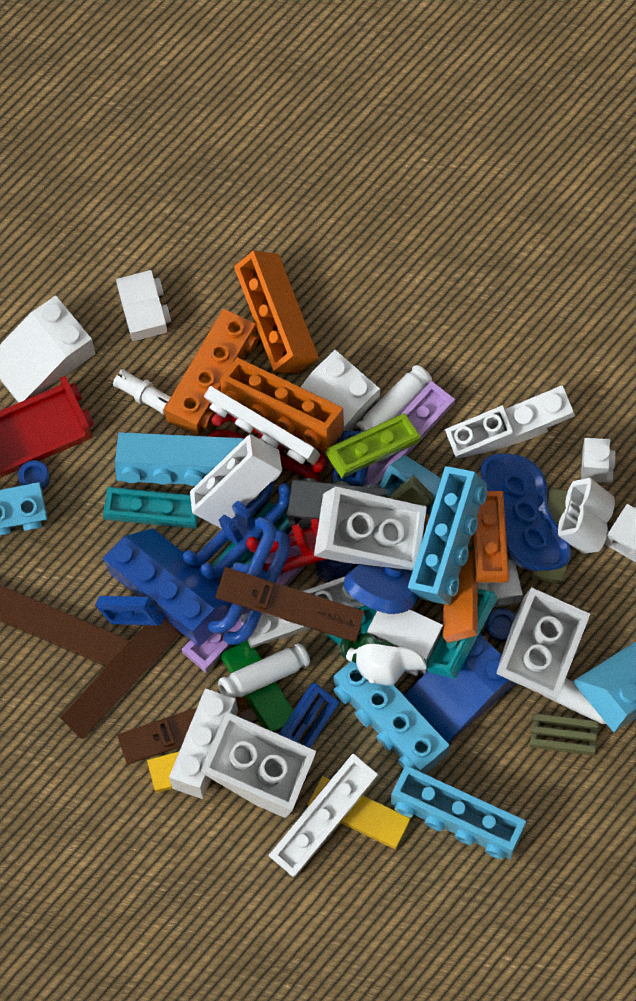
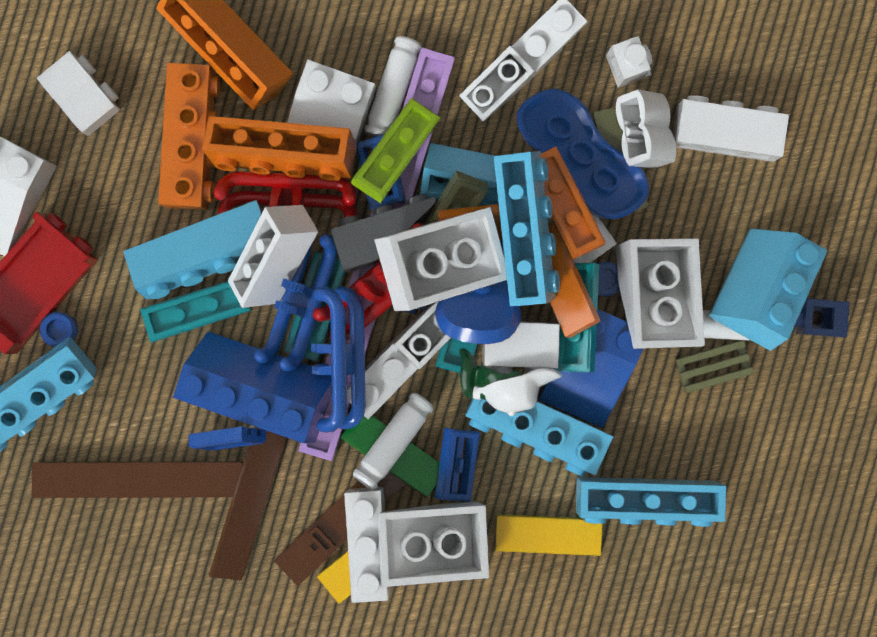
camera: 25 degrees left, 20 degrees up
(141, 391) = (125, 188): white pin -> none
(271, 433) = (255, 183): white plate -> none
(290, 604) = (392, 373): reddish brown piece -> none
(323, 815) = (519, 559): white plate -> none

